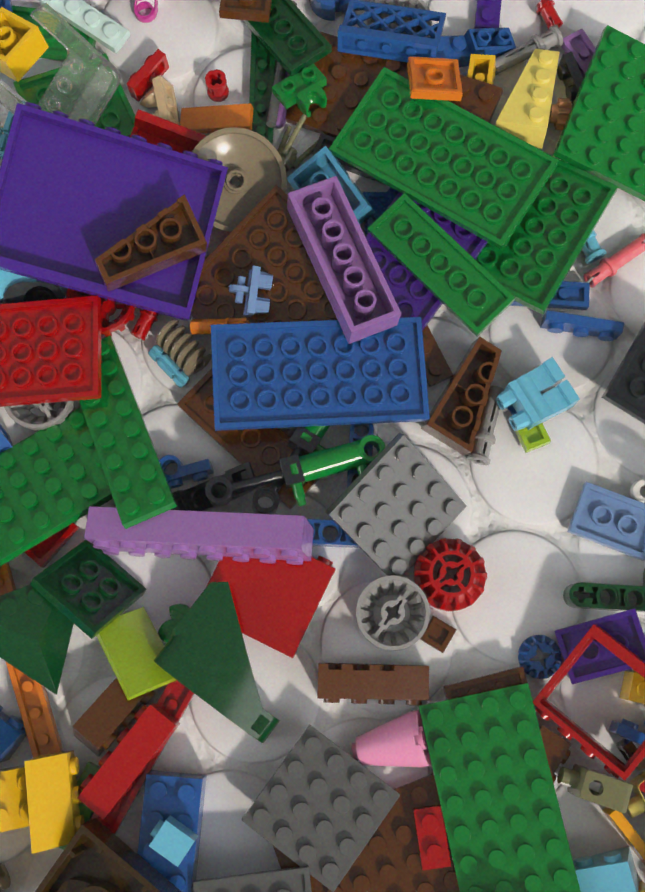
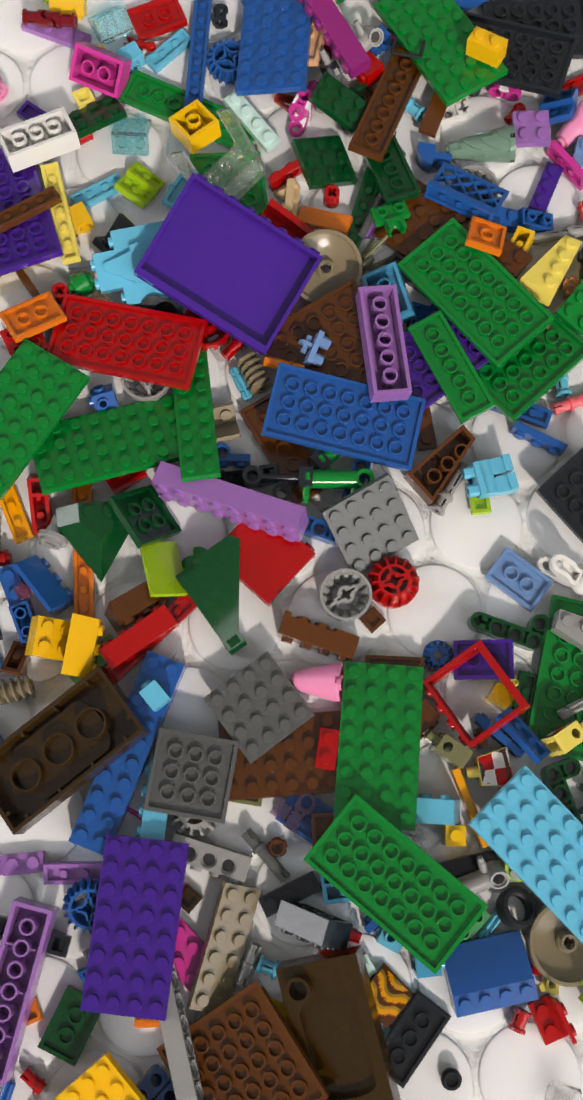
camera: 10 degrees right, 0 degrees up
(153, 246) = (256, 297): reddish brown wedge -> none
(163, 425) = (225, 422): none -> dark tan bracket
(193, 43) = (324, 162): none -> dark green plate

